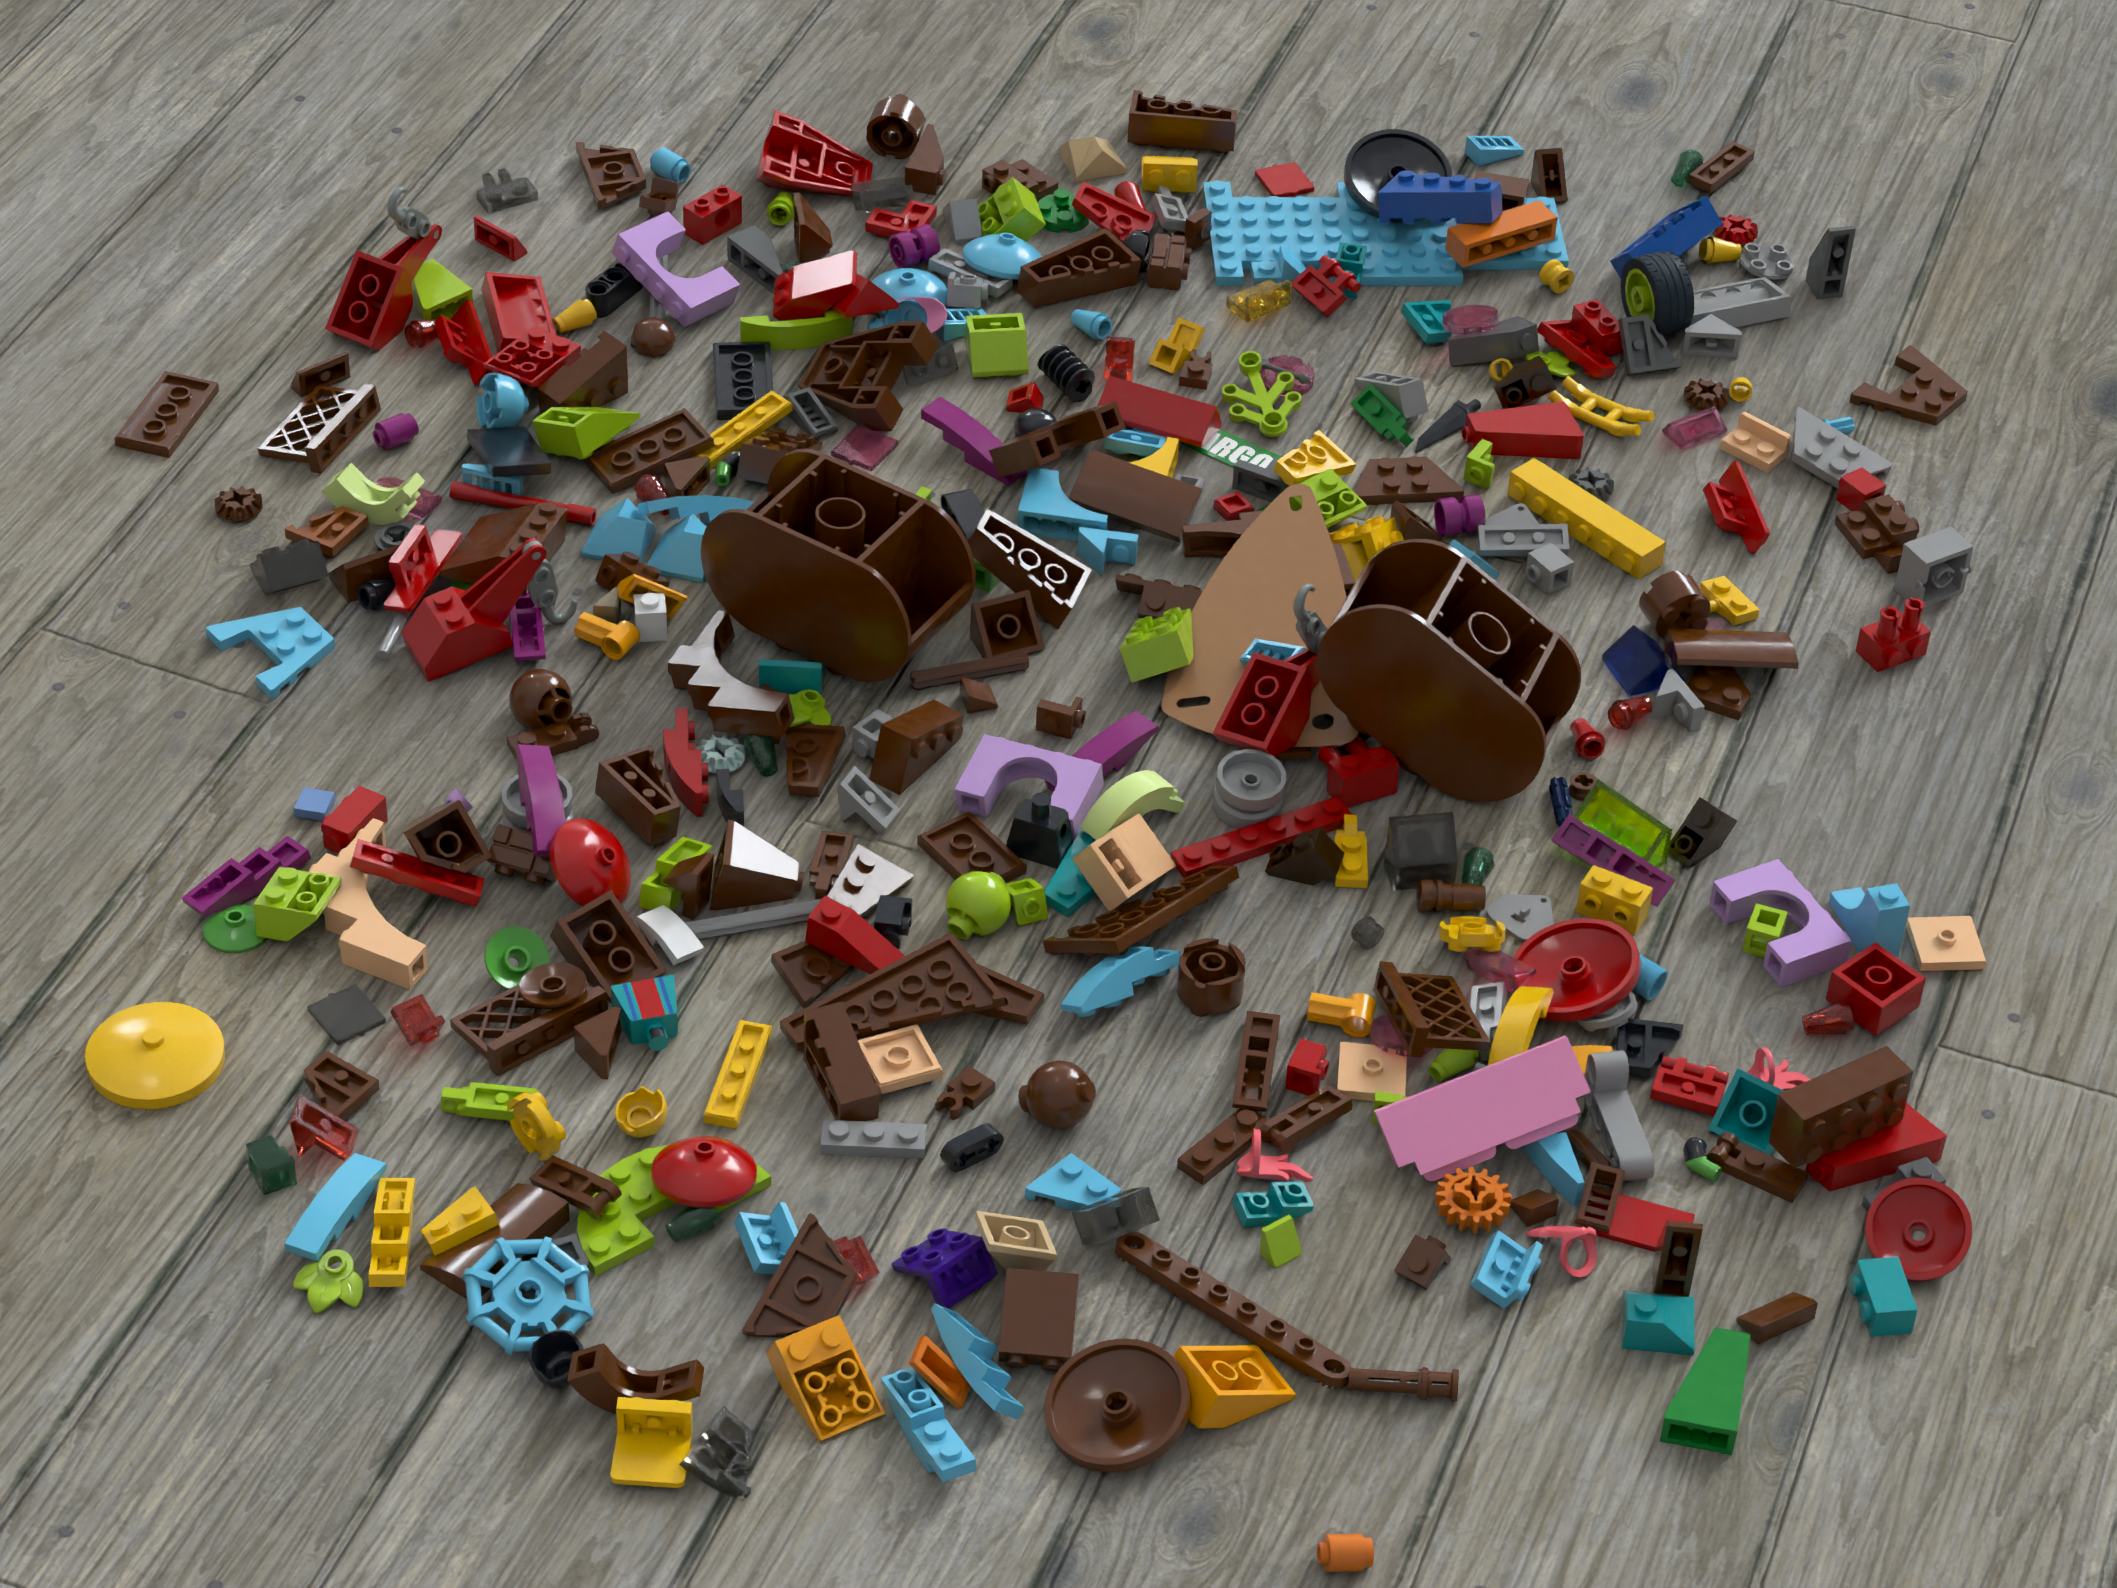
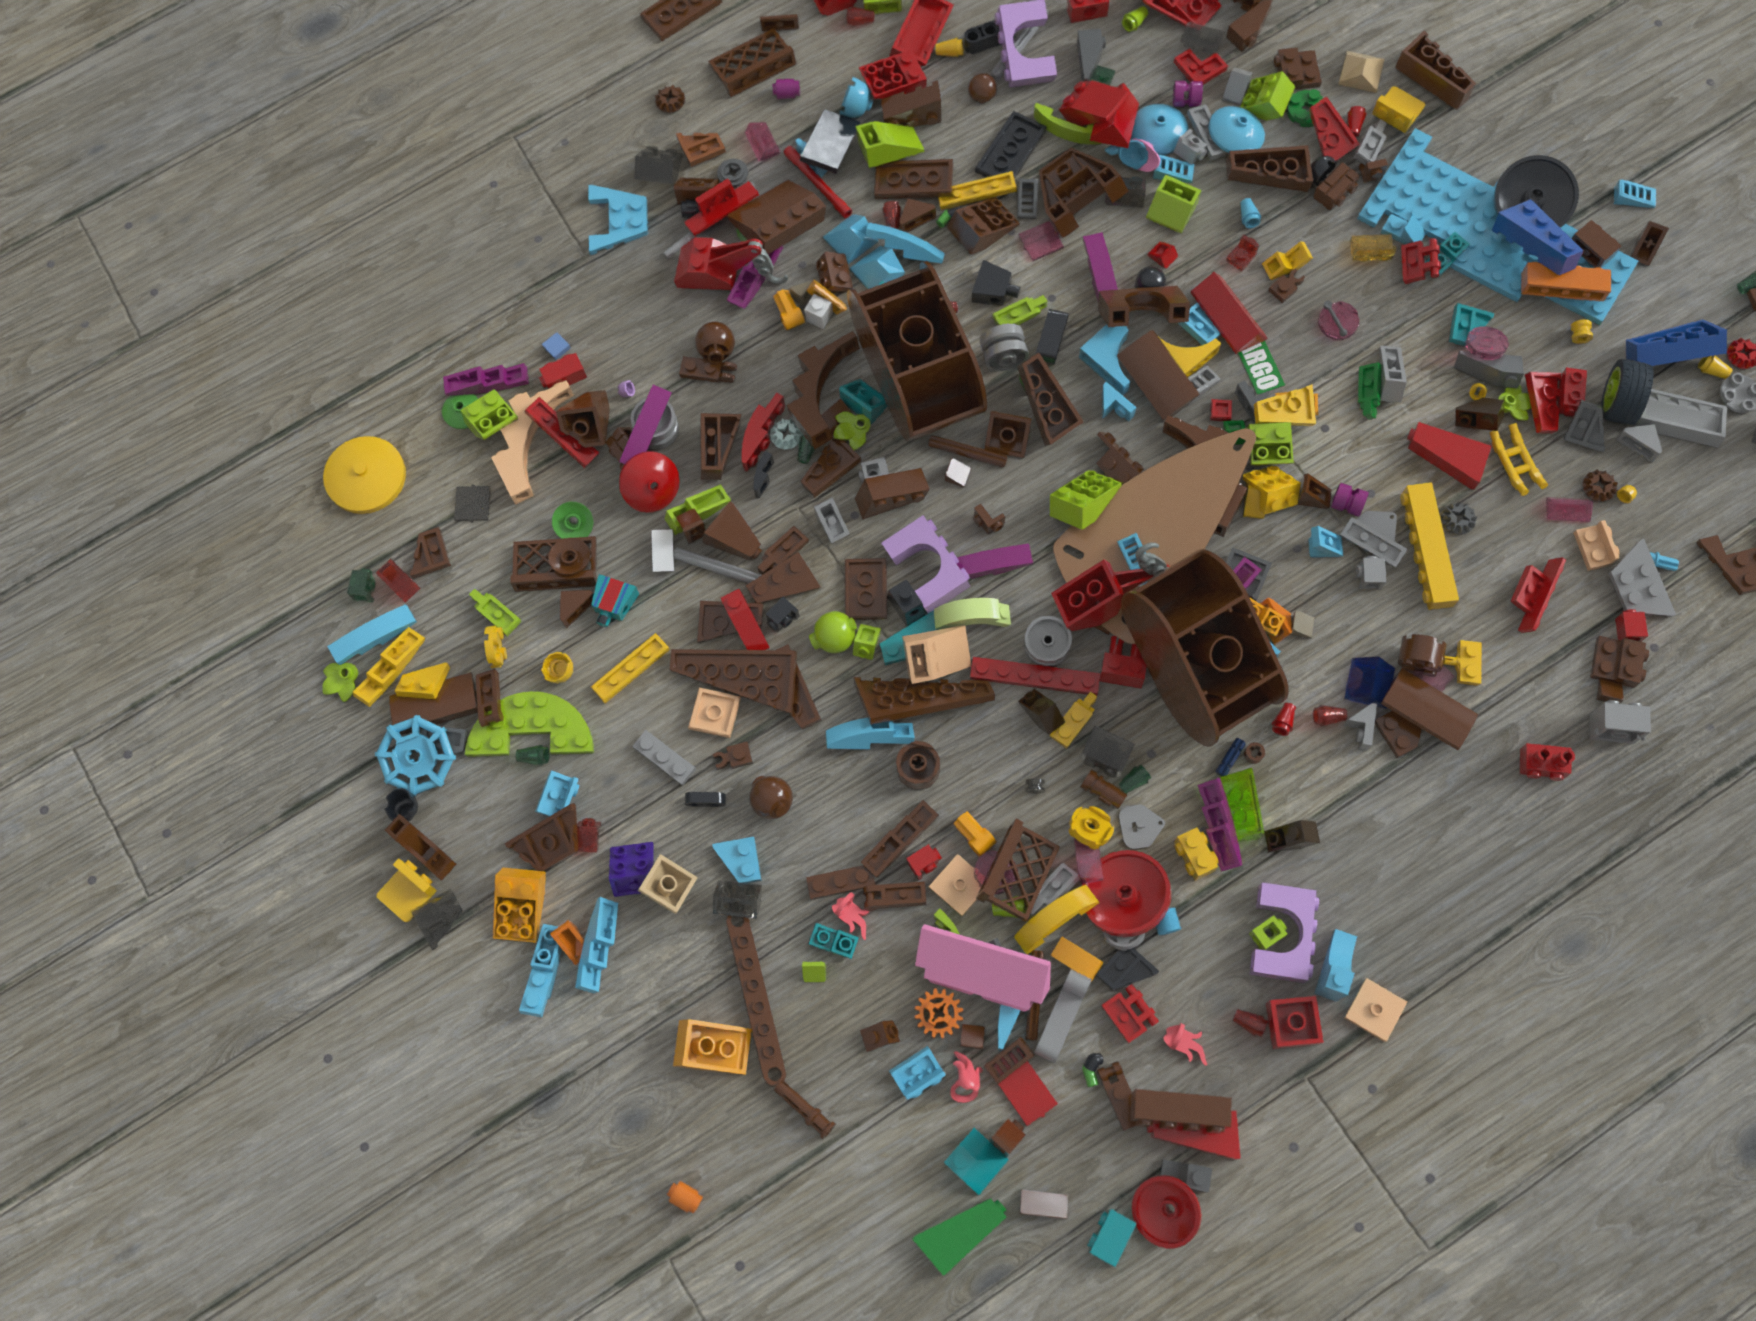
camera: 45 degrees right, 30 degrees up
(379, 503) = (734, 134): yellowish green arch -> none
(417, 1020) = (496, 533): clear red bracket -> none
(465, 341) = (872, 33): red bracket -> none
(606, 944) = (623, 543): reddish brown slope -> none
(703, 1171) = (558, 742): red dish -> none
(811, 234) = (1129, 52): reddish brown slope -> none
(839, 1064) = (675, 704): reddish brown wedge -> none
(1038, 1318) = (647, 940): reddish brown slope -> none
(1067, 372) = (1200, 248): black piece -> none
(1117, 1405) = (640, 1026): reddish brown dish -> none
(1272, 422) = (1306, 334): lime plant -> none
(1284, 180) = (1472, 151): piece -> none
(1405, 480) = (1342, 448): reddish brown wing -> none
(1448, 423) = (1421, 413): black bar -> none
(1479, 465) = (1397, 463): lime bracket -> none
(1747, 1111) = (1143, 1063): teal slope -> none

